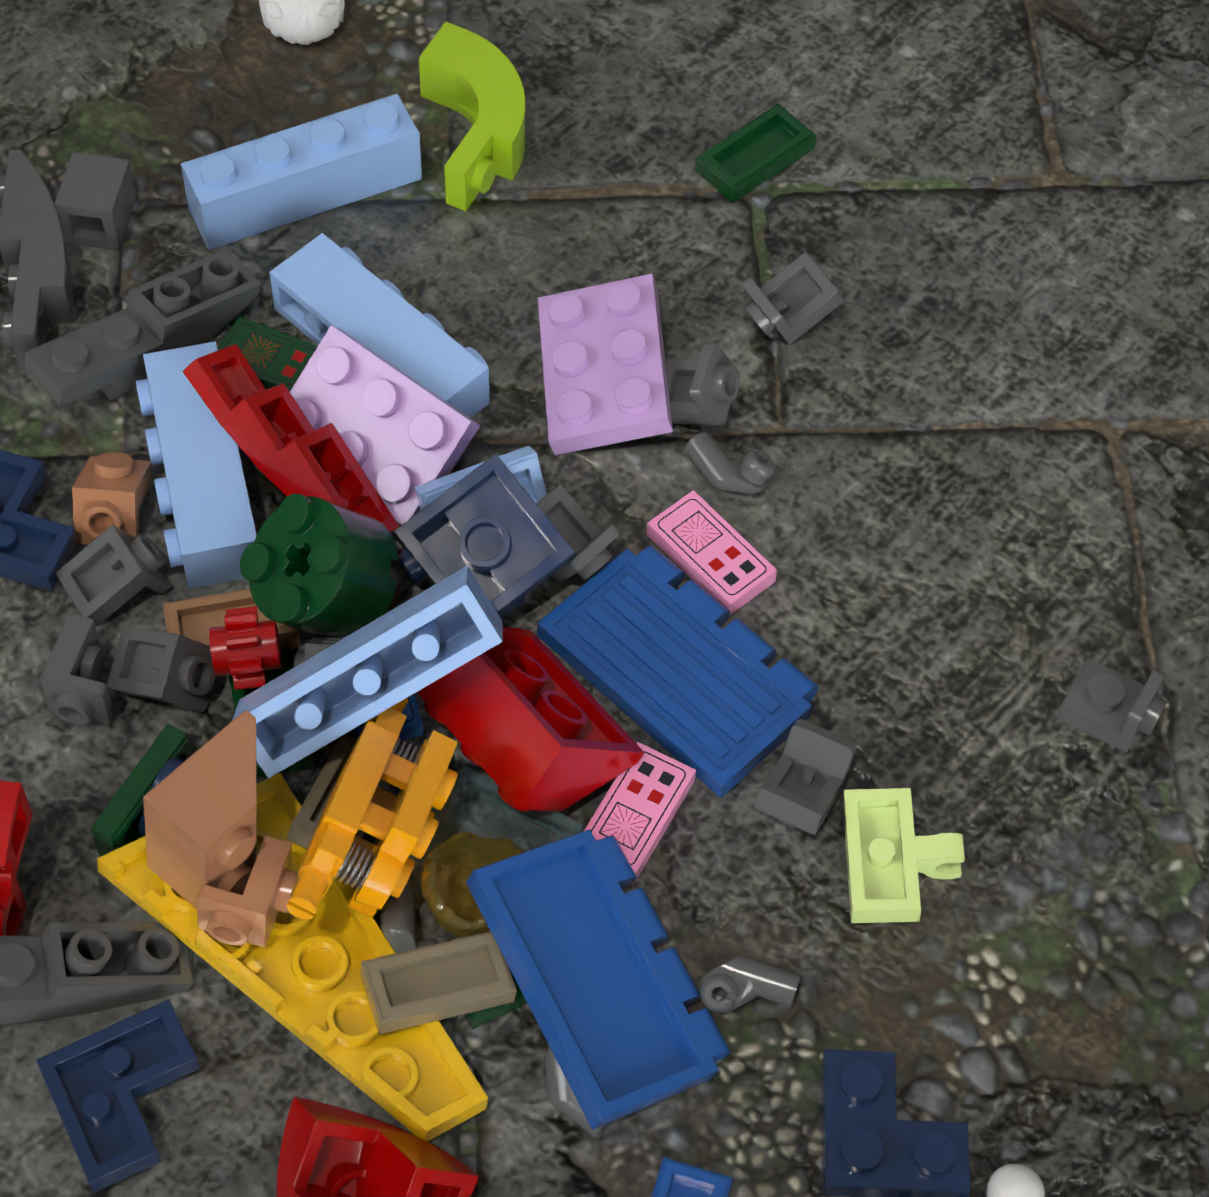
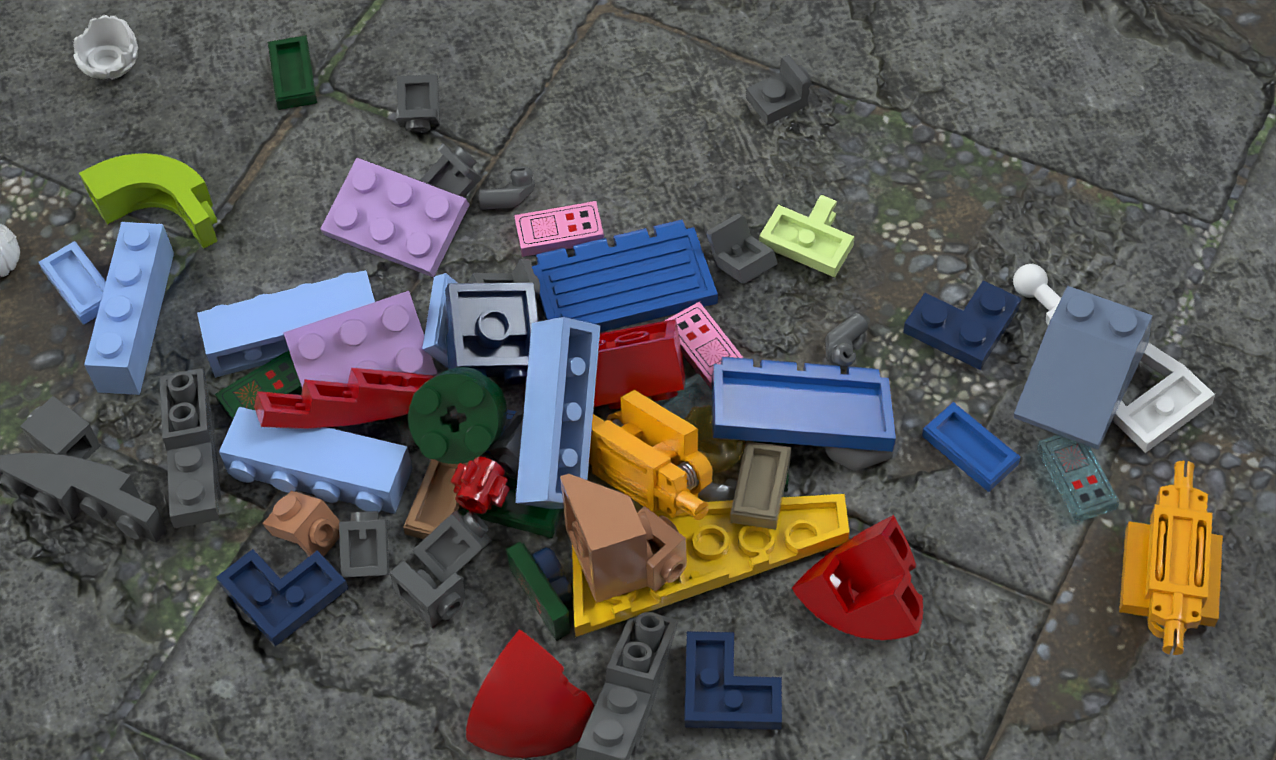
camera: 55 degrees left, 0 degrees up
(323, 93) = (75, 280): none -> light blue tile

